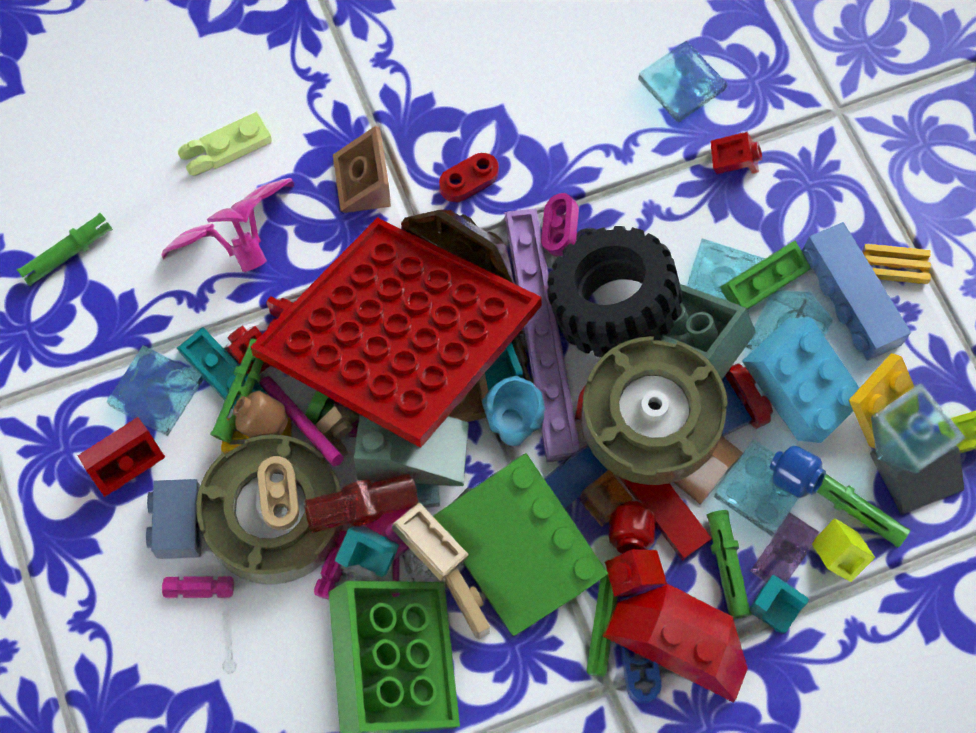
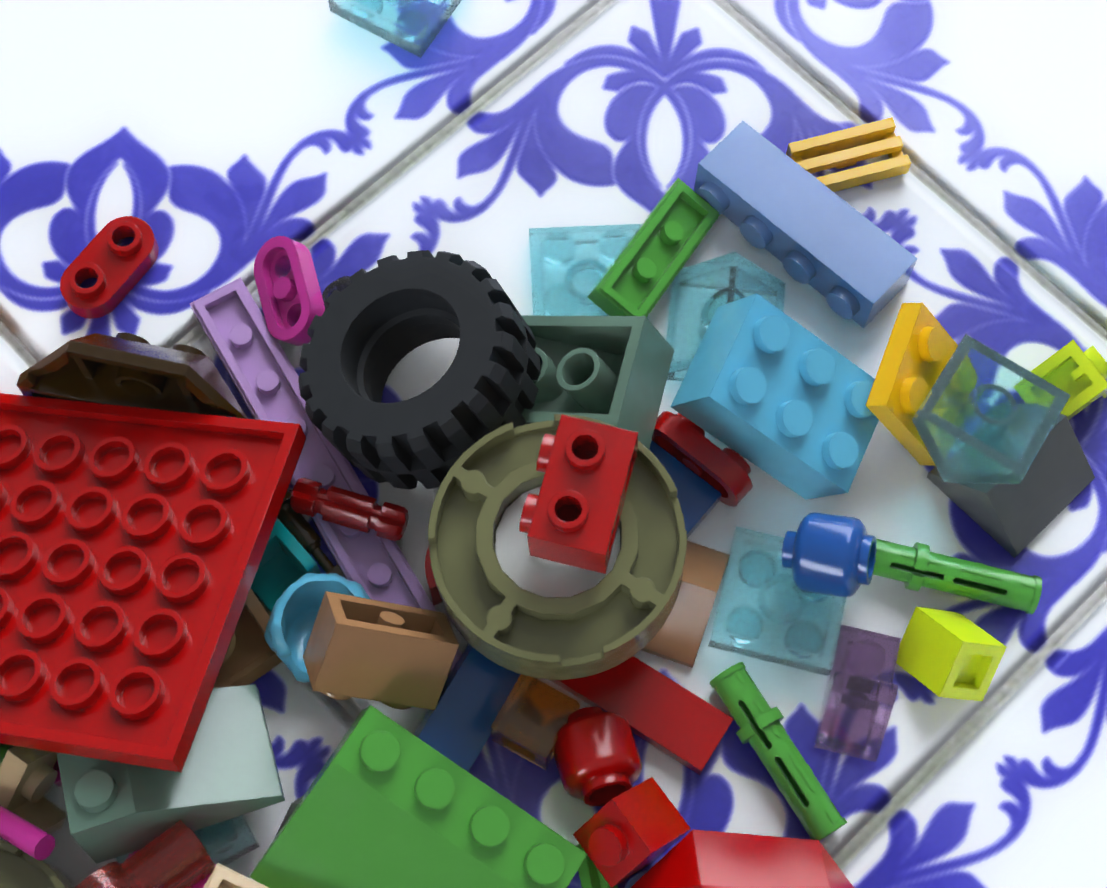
camera: 20 degrees left, 0 degrees up
(539, 429) = (379, 652): none -> medium nougat brick
(550, 351) = (349, 509): none -> red axle
(675, 386) = (580, 493): none -> red brick
(735, 153) = (531, 73): red bracket -> none
(778, 604) = (881, 787): teal panel -> none

